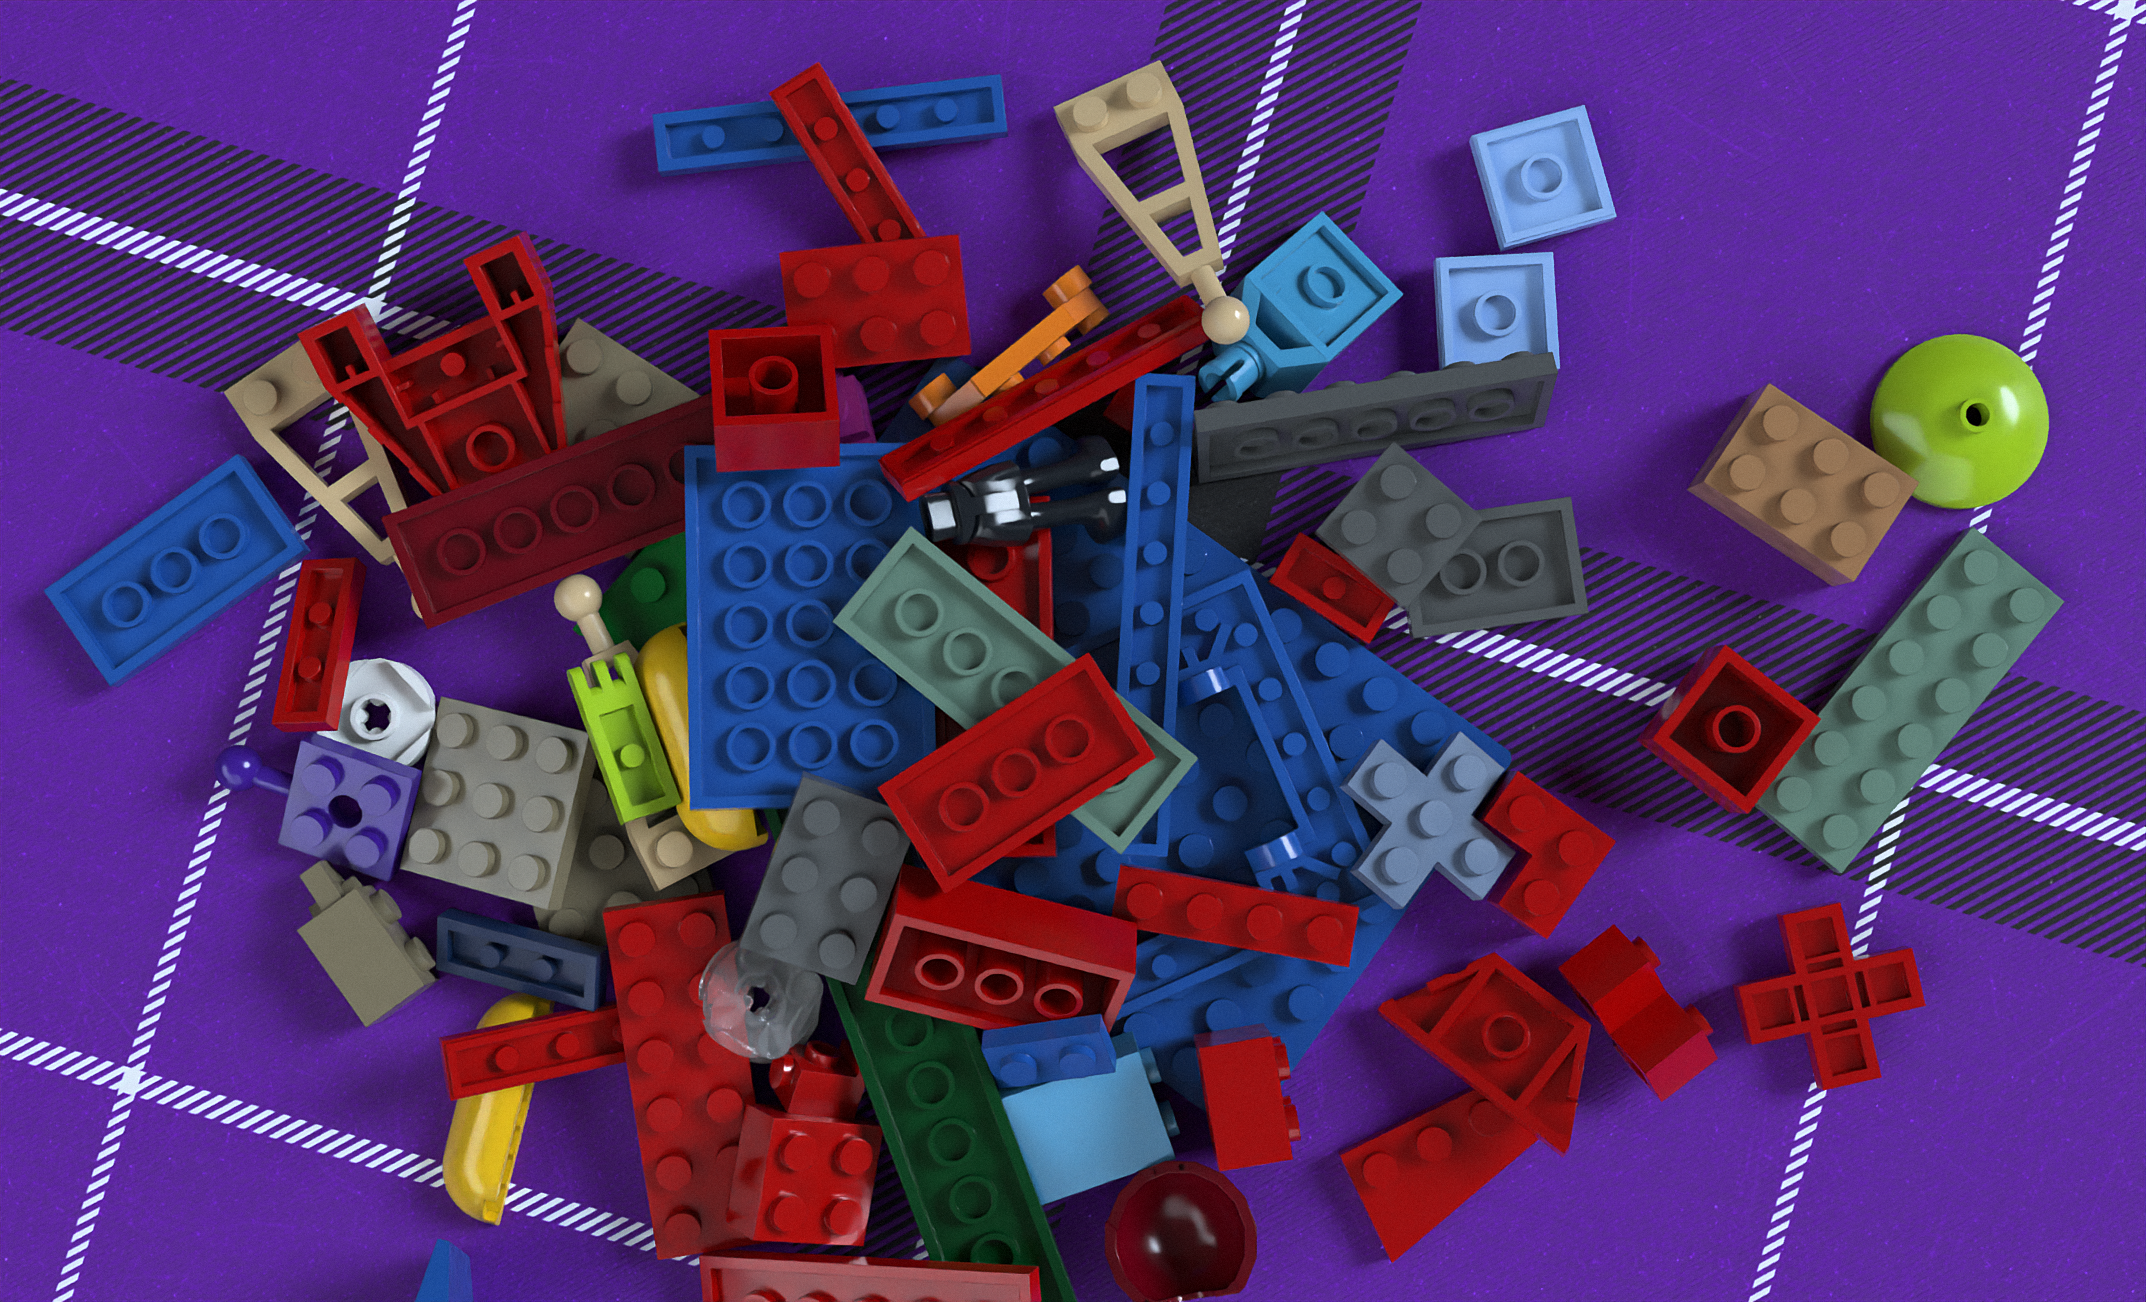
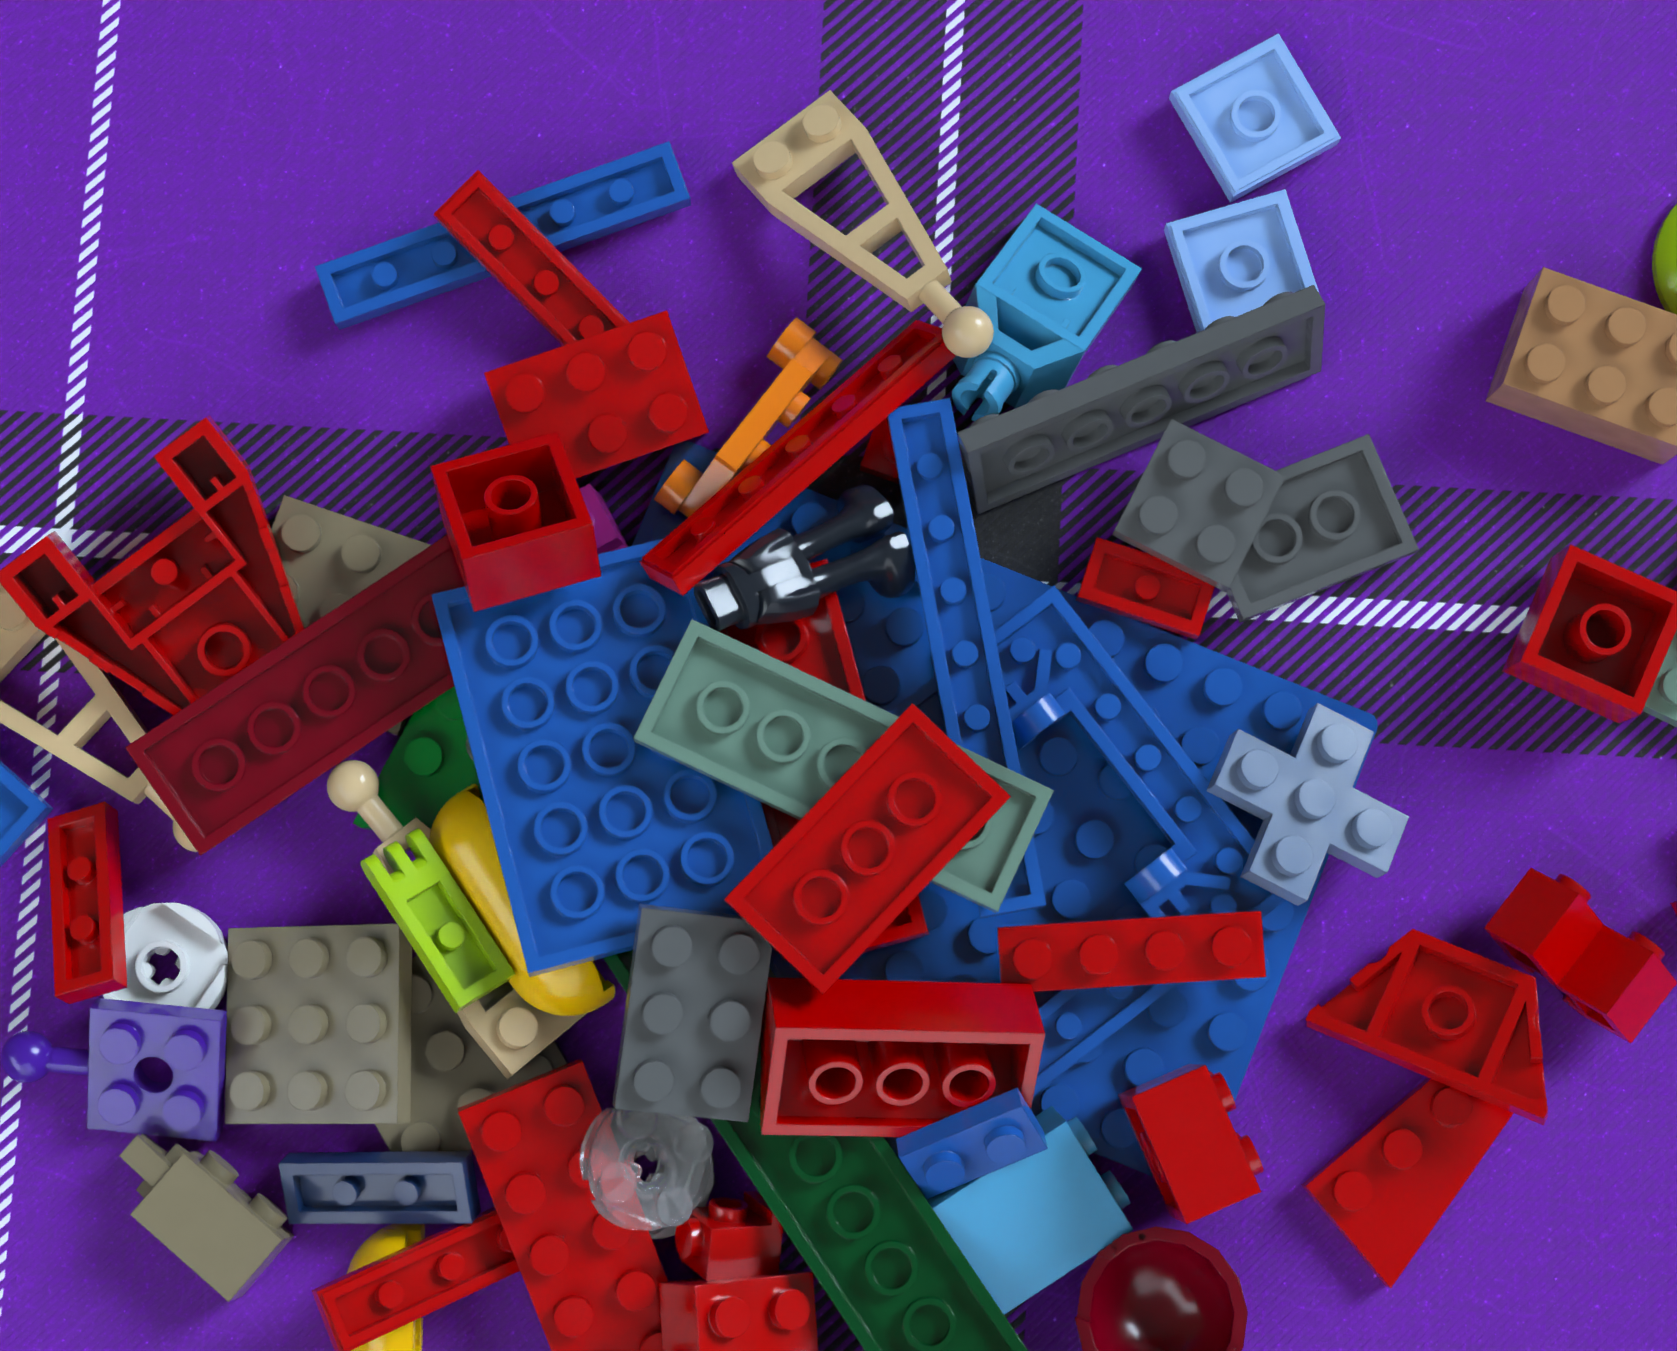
camera: 20 degrees left, 5 degrees down
(1555, 850) = (1449, 806): red brick -> none

